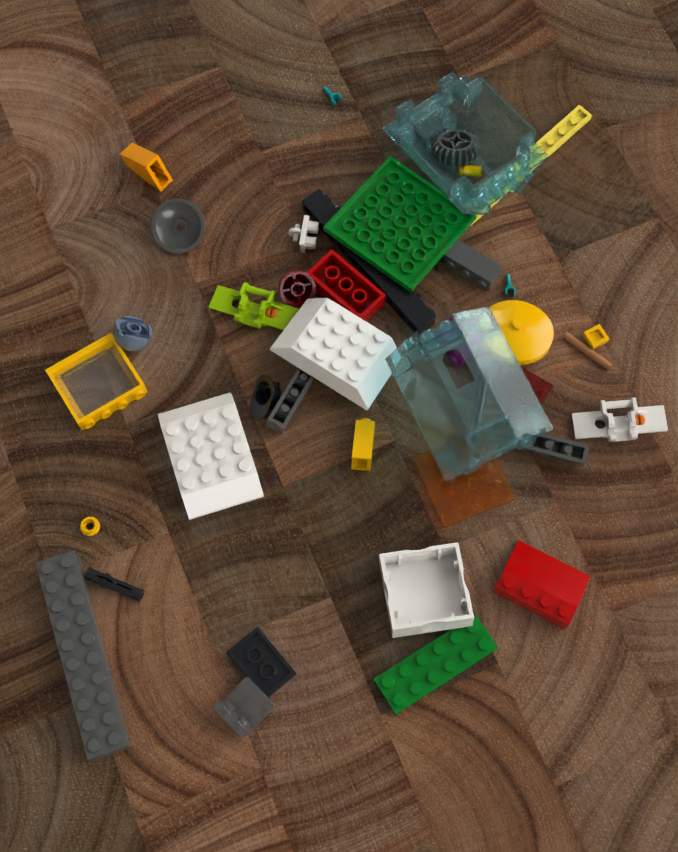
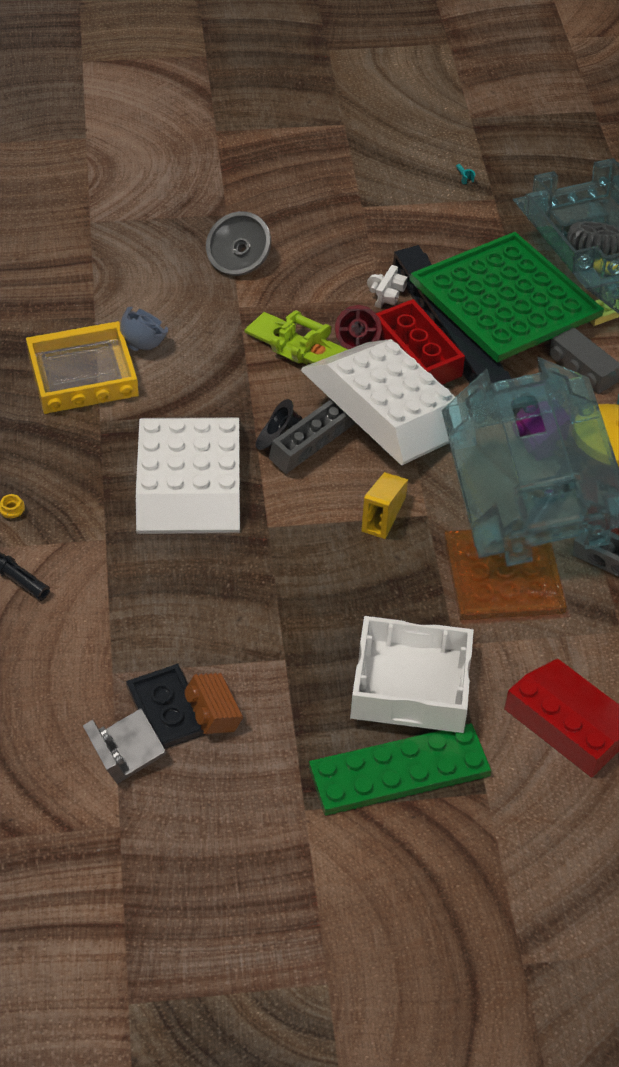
camera: 15 degrees right, 20 degrees down
(147, 166) = (224, 185): light orange slope -> none
(294, 656) = (213, 703): none -> dark orange brick

